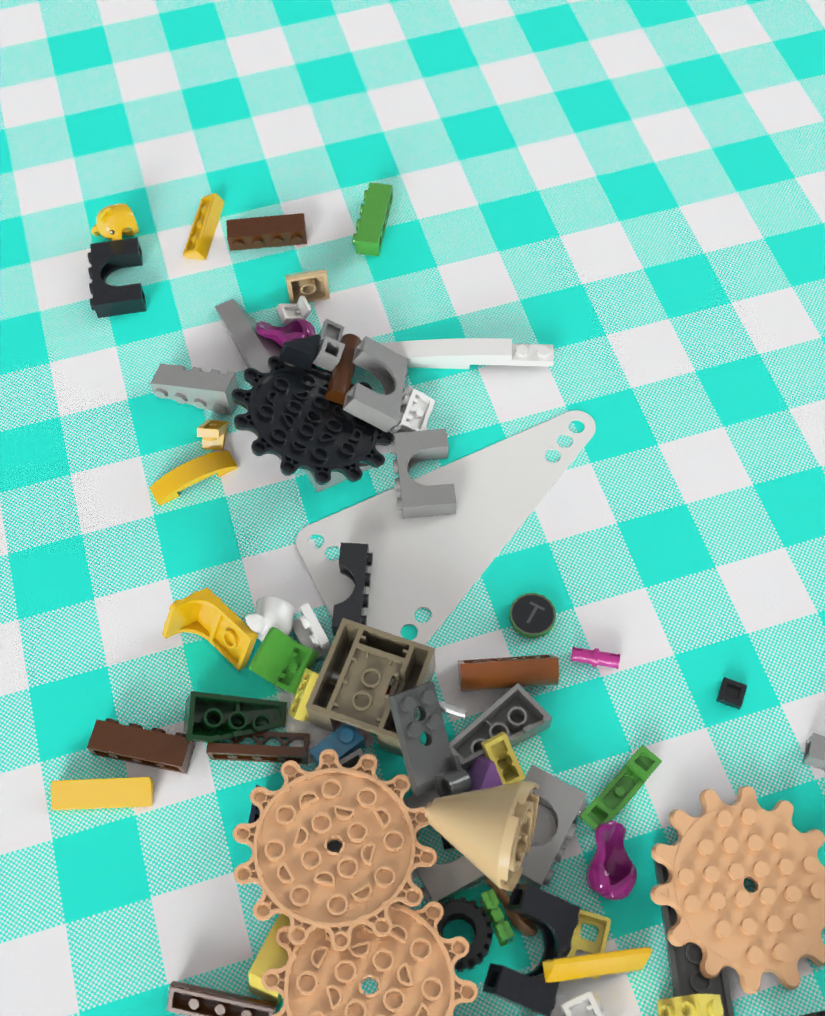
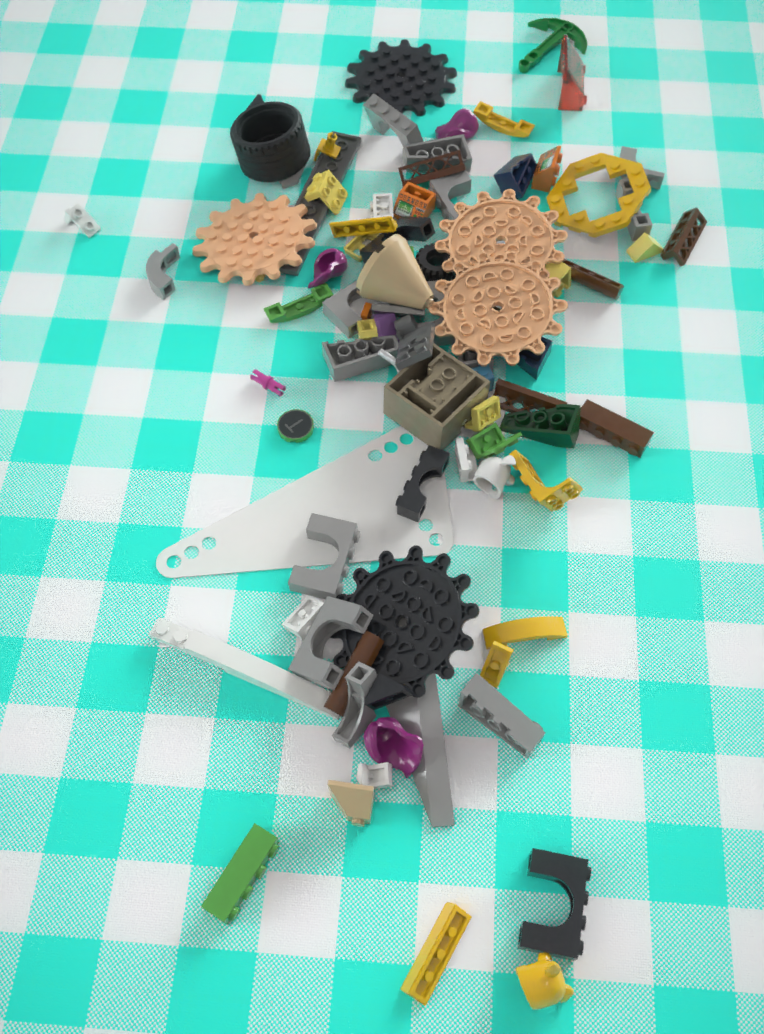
camera: 160 degrees left, 0 degrees up
(102, 793) = (646, 413): yellow slope -> none
(266, 231) = (367, 903): reddish brown brick -> none
(508, 671) = (334, 388): dark orange brick -> none
(731, 693) = (191, 336): black tile -> none

